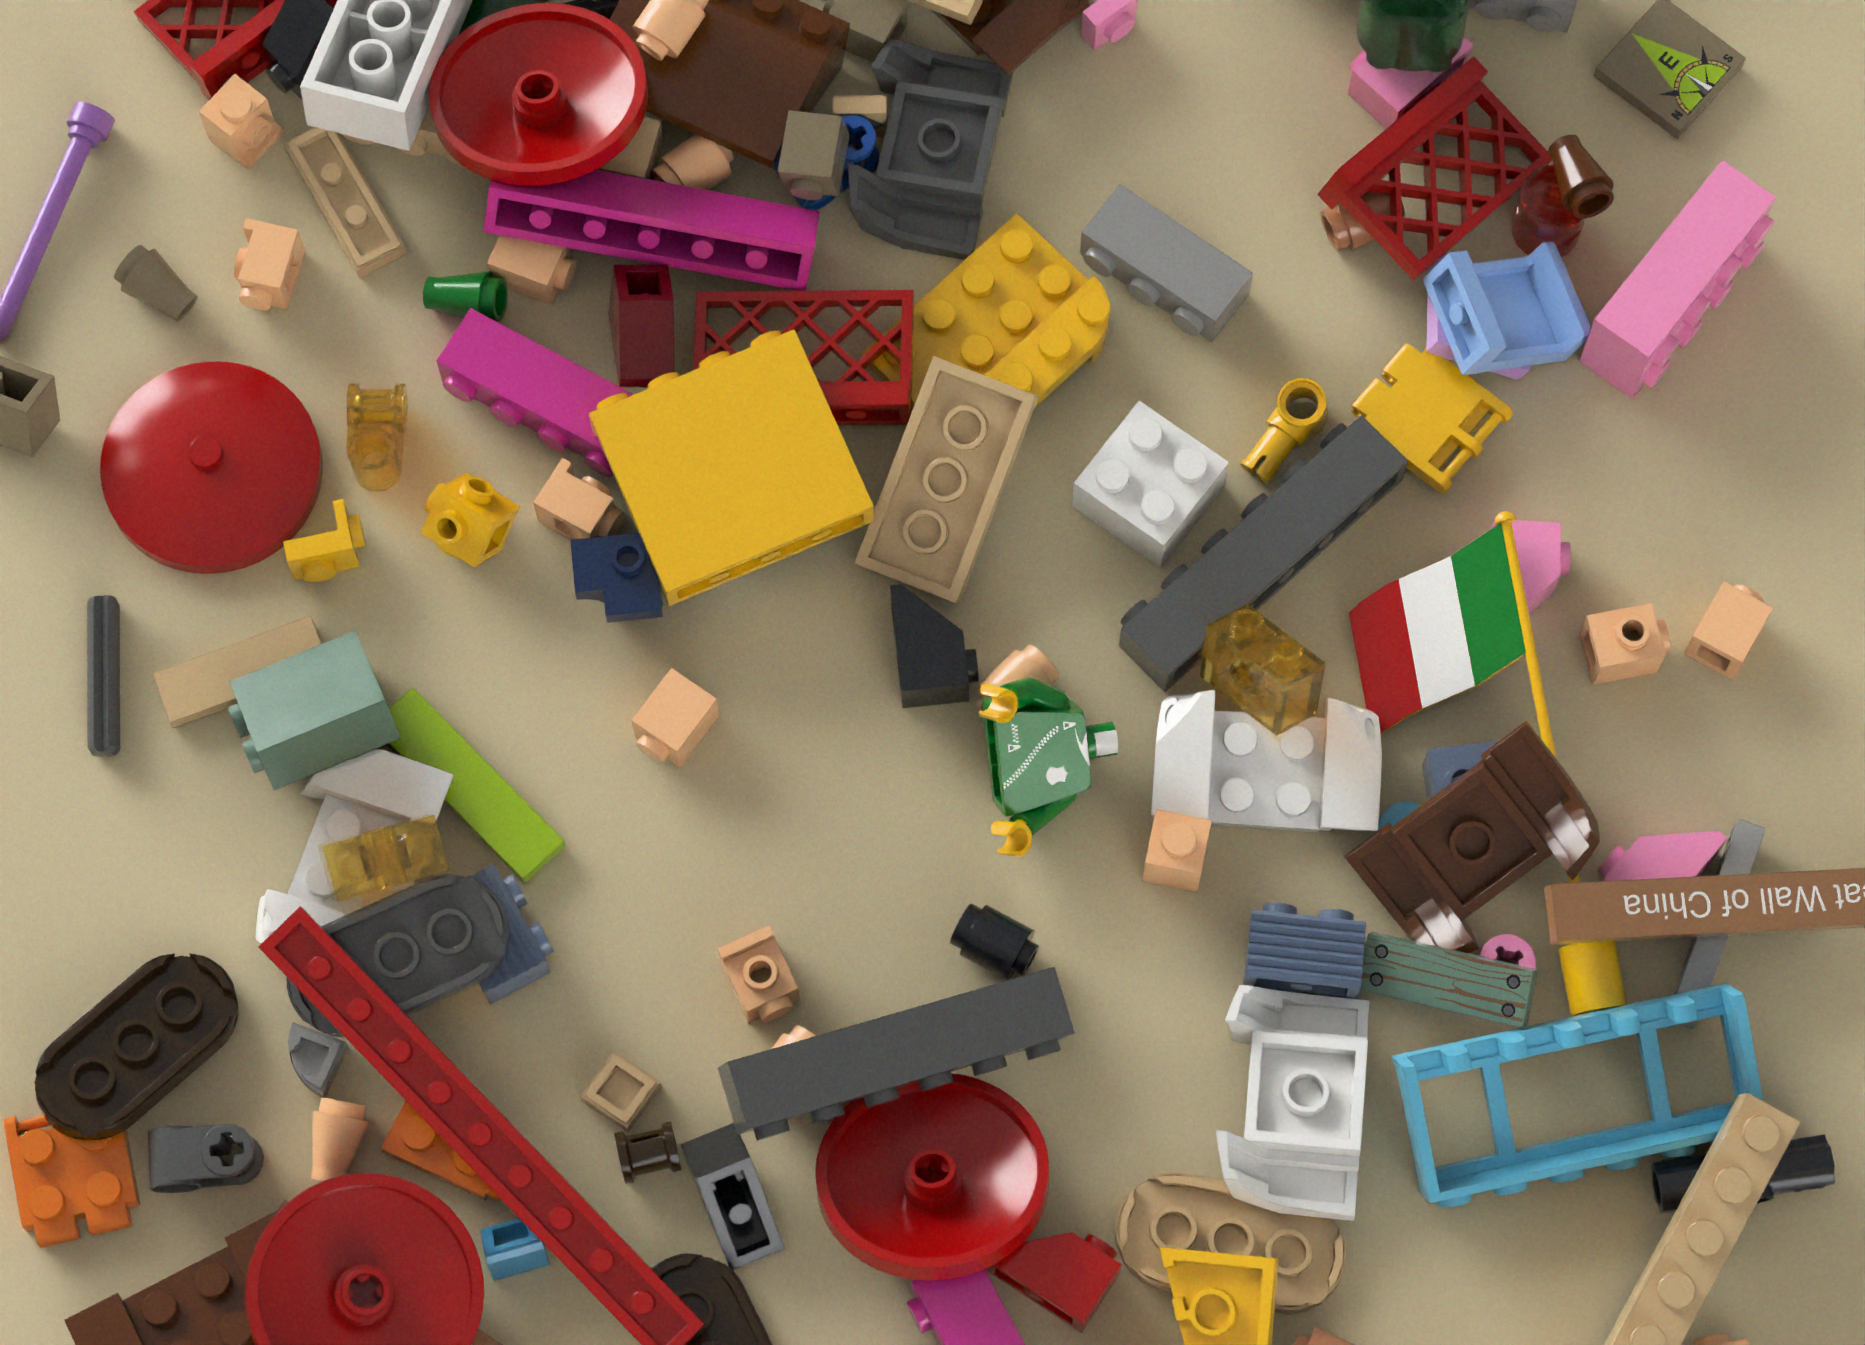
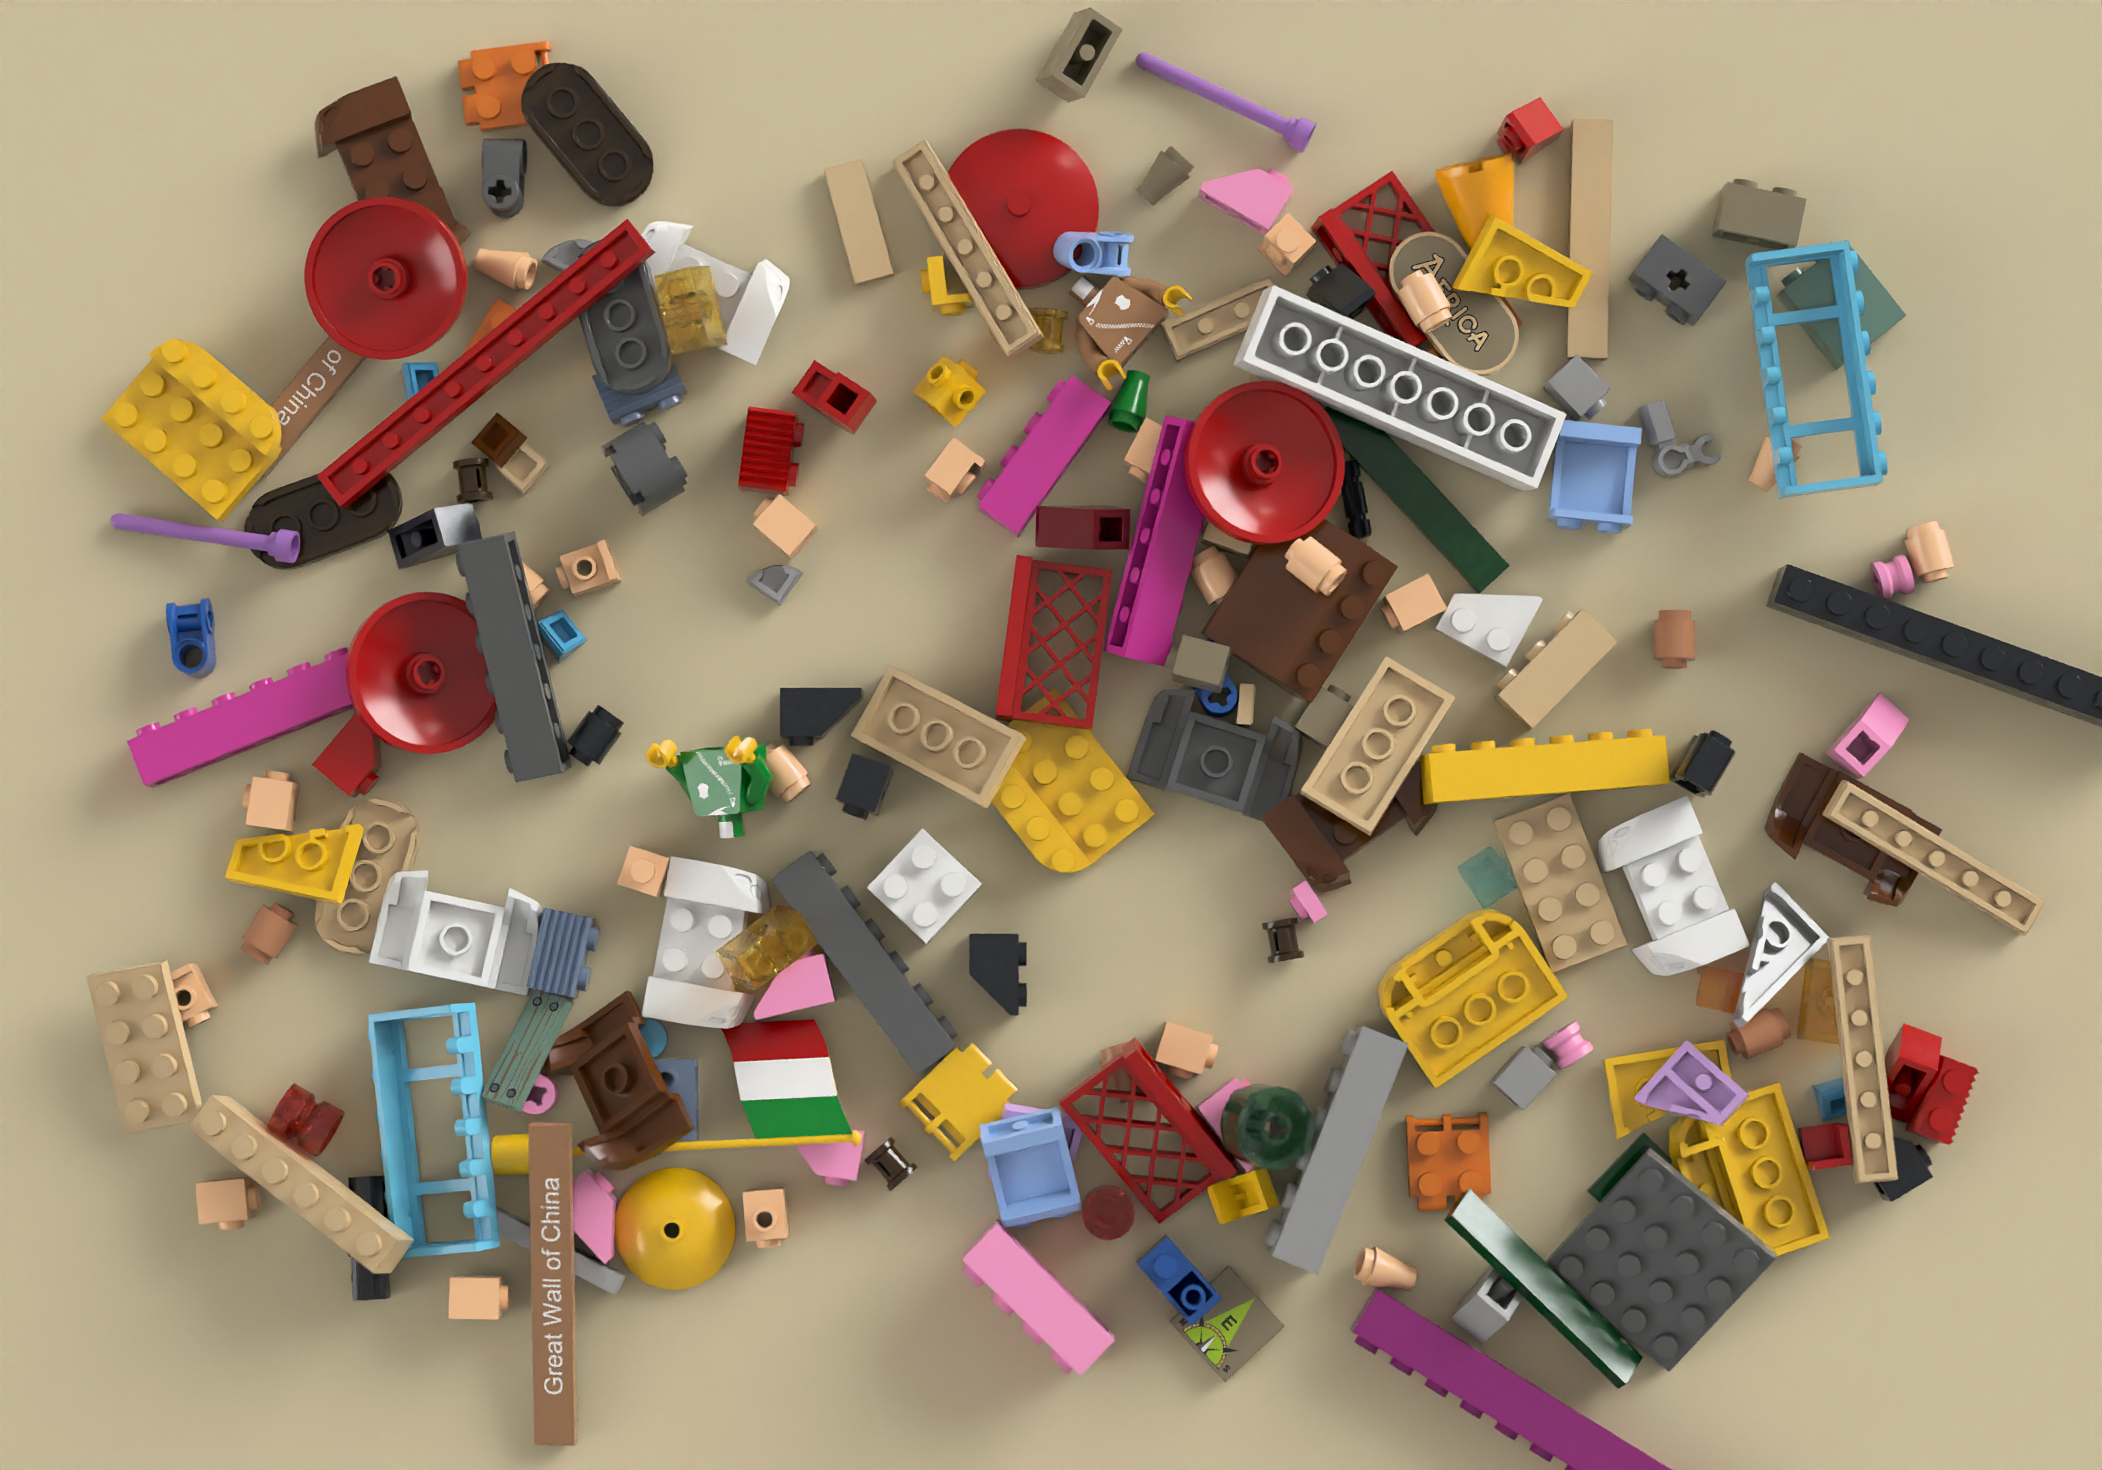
camera: 95 degrees right, 15 degrees up
(103, 676) = (866, 124): dark grey axle -> none
(182, 170) = (1250, 197): none -> bright pink slope
(265, 355) = (1101, 252): none -> light blue piece
(268, 265) = (1168, 258): light nougat brick -> none
(271, 512) = (968, 249): none -> tan tile
(311, 711) = (812, 269): sand green brick -> none
(357, 315) = (1120, 320): none -> medium nougat torso
(477, 790) = (750, 383): lime tile -> none
(496, 658) = (835, 397): none -> red brick
(572, 749) = (769, 451): none -> red brick
(586, 1122) = (499, 440): none -> reddish brown tile
(609, 905) = (645, 467): none -> dark grey brick
(619, 575) = (893, 498): dark blue brick -> none
(731, 465) = (959, 579): yellow panel -> none
(753, 729) = (775, 581): none -> light grey tile
(857, 1004) = (560, 635): none -> dark azure slope
(1025, 566) = (864, 786): none -> black brick
(1163, 42) = (1283, 940): none -> dark brown bush
(1164, 264) = (1099, 918): light grey brick -> none
(1243, 383) = (995, 967): none -> black slope
(1286, 431) = (958, 992): yellow pin -> none
(1312, 620) = (798, 987): none -> bright pink slope
(1322, 143) = (1185, 1050): none -> light nougat brick
(1504, 52) = (1242, 1195): none -> yellow bracket
(1530, 490) = (891, 1163): none -> dark brown bush
(1580, 179) = (1113, 1232): reddish brown cone -> none
(1591, 1278) = (306, 1120): none -> clear red wheel
(1627, 115) = (1178, 1279): none -> blue slope
(1637, 793) = (704, 1222): none -> yellow dish
(1729, 629) = (769, 1294): light nougat brick -> none
(1800, 1009) = (478, 1297): none -> light nougat brick

